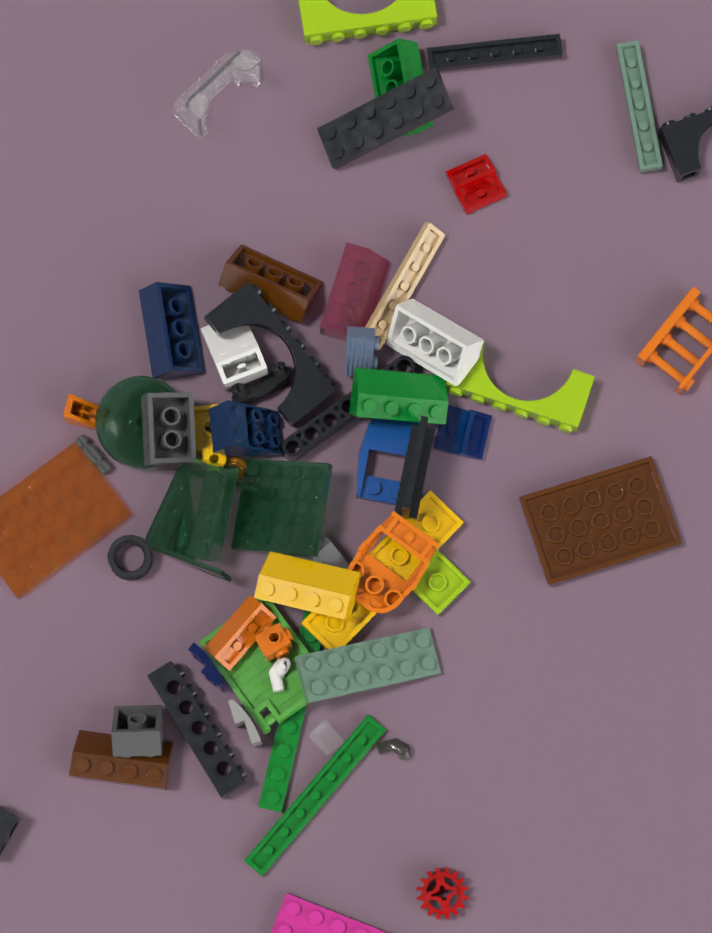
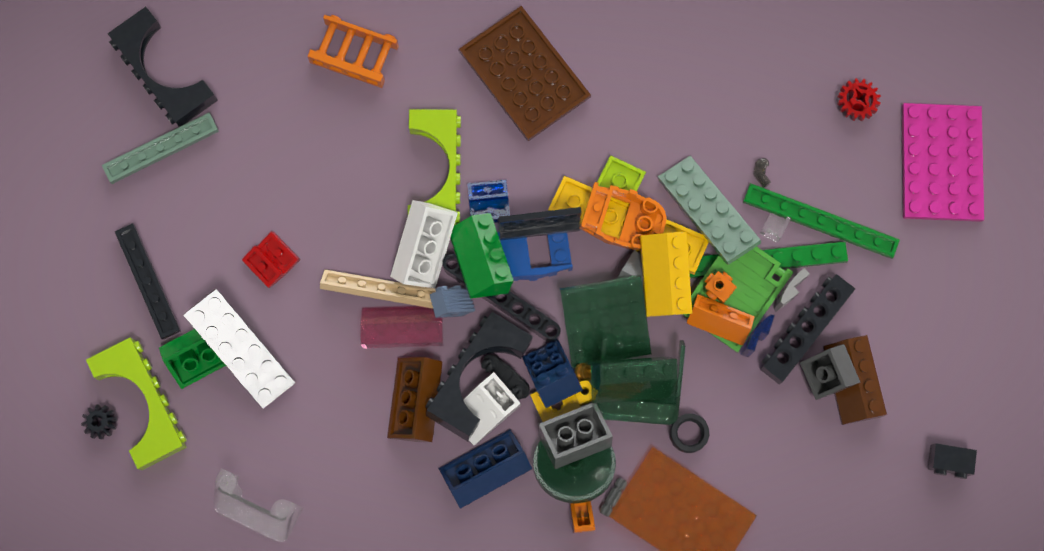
camera: 110 degrees left, 0 degrees up
(277, 672) = (743, 277): white arm -> none

